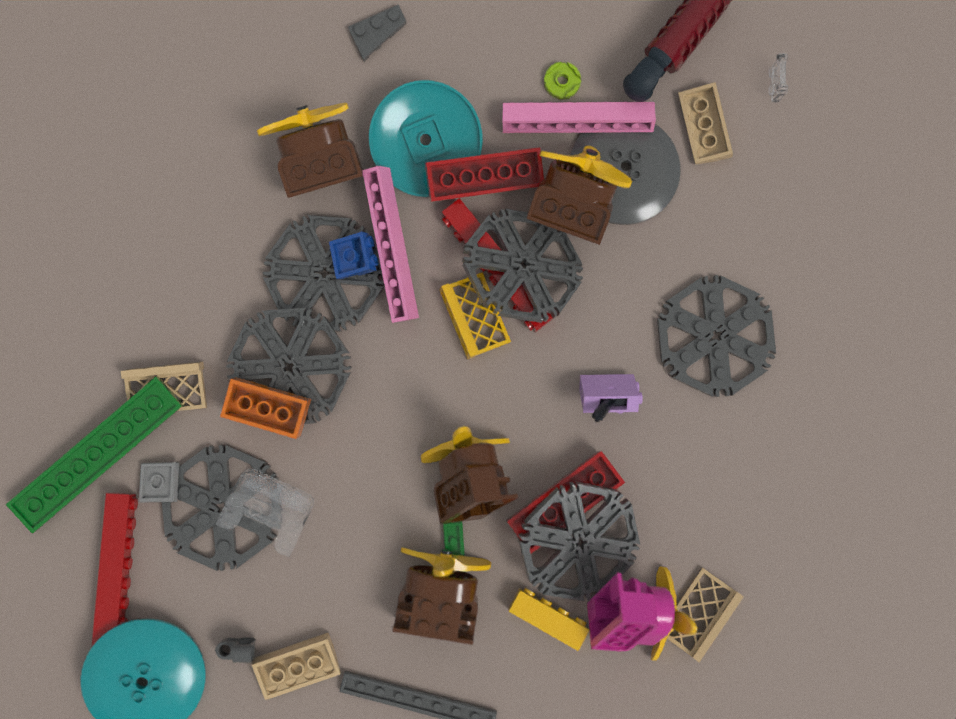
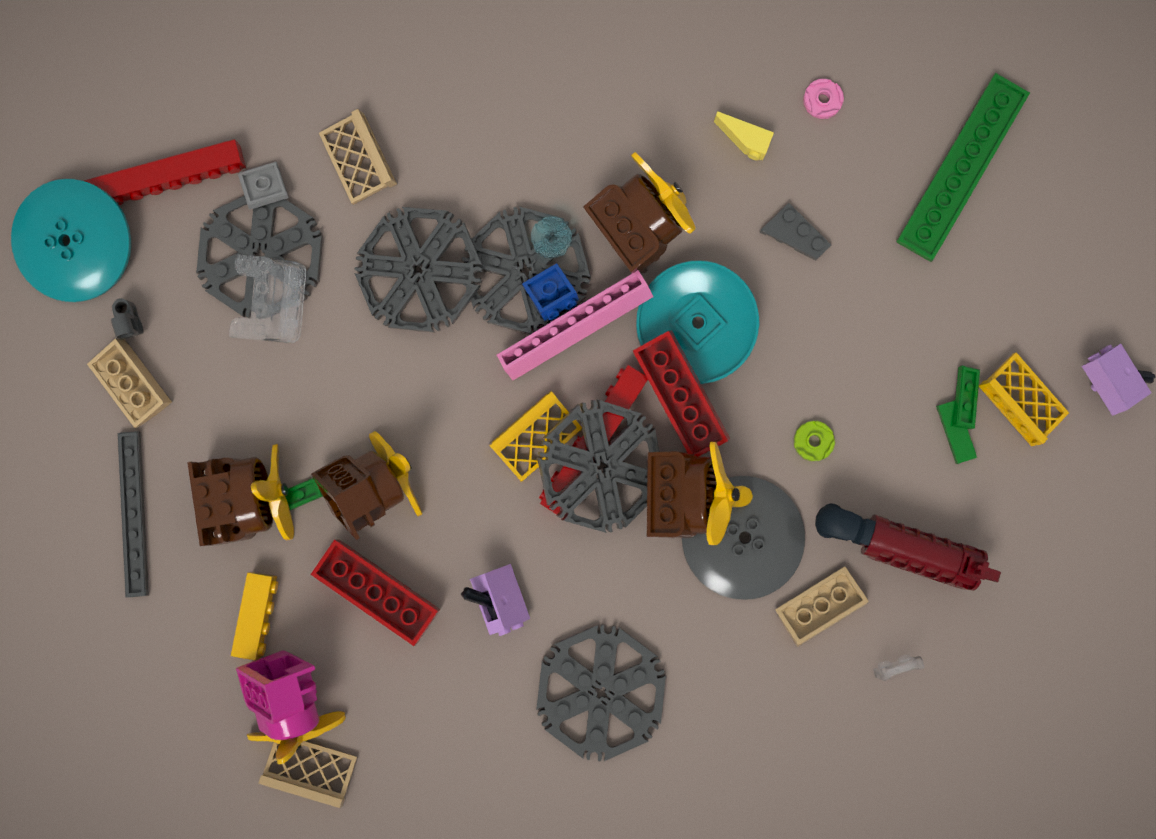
camera: 70 degrees right, 0 degrees up
(94, 455) = (270, 115): green plate -> none
(265, 407) = (368, 261): orange brick -> none
(277, 40) = (746, 136): none -> light yellow slope
(300, 228) = (543, 229): none -> clear light blue plate
(579, 117) = (778, 470): bright pink brick -> none
(593, 542) = (329, 608): dark grey plate -> none

